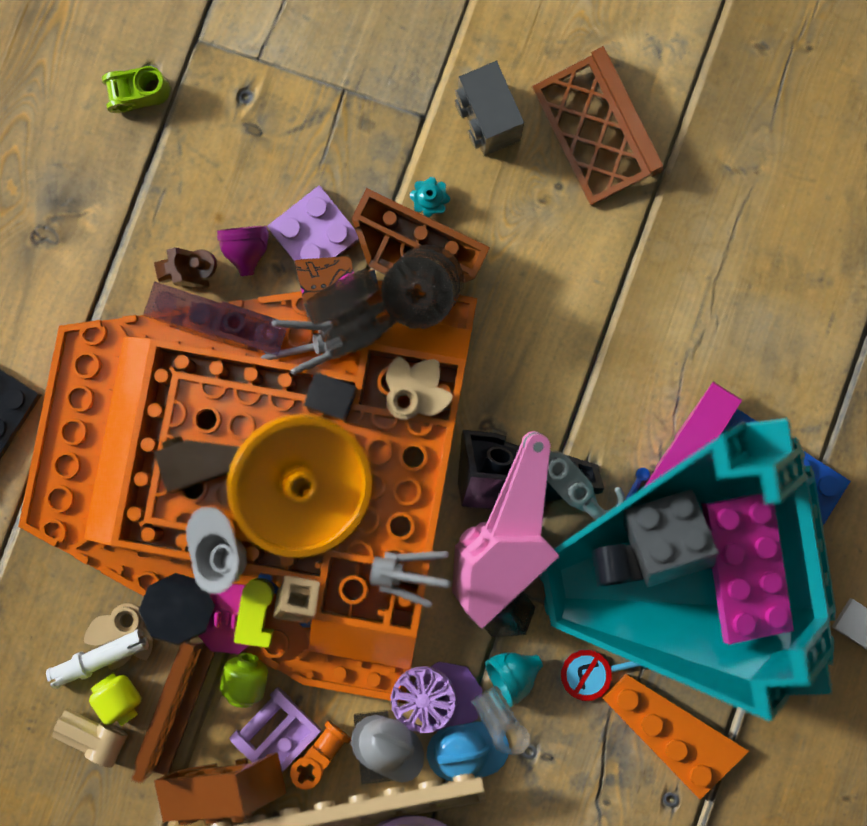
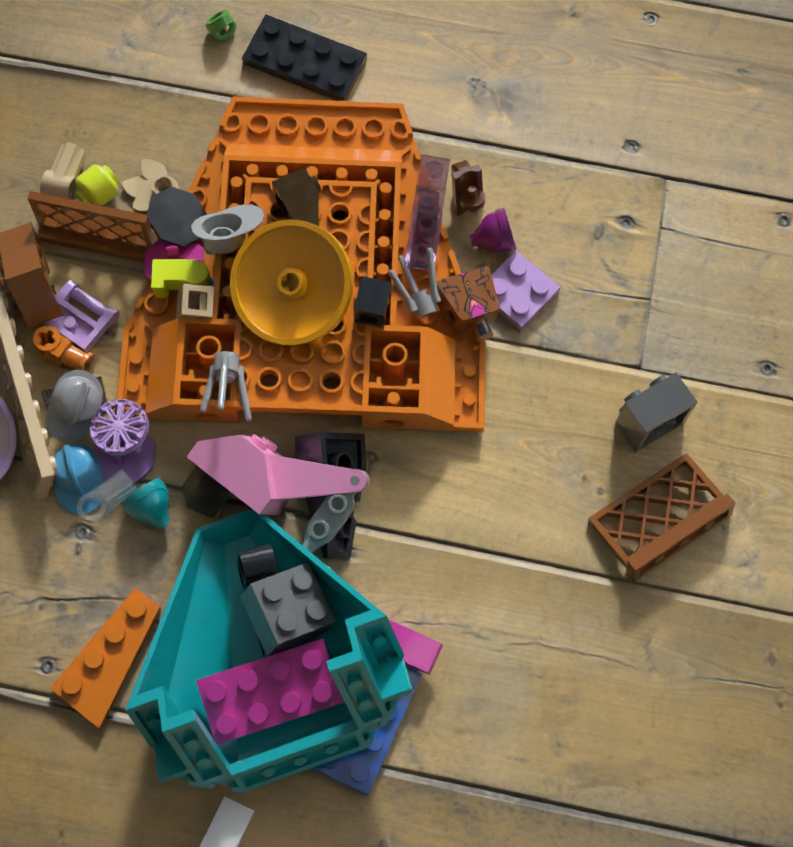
camera: 75 degrees right, 15 degrees down
(84, 664) = (124, 161): white pin -> none
(129, 92) = (610, 131): lime piece -> none
(244, 680) = (122, 281): lime head -> none
(349, 313) = (447, 303): clear smoke wheel -> none
(390, 230) = (519, 364): dark orange wedge -> none
(419, 385) = (395, 374): tan plate -> none
(429, 197) = (567, 378): teal plant -> none
(439, 278) = (483, 367): clear smoke wheel -> none
(588, 674) = (156, 573): piece -> none

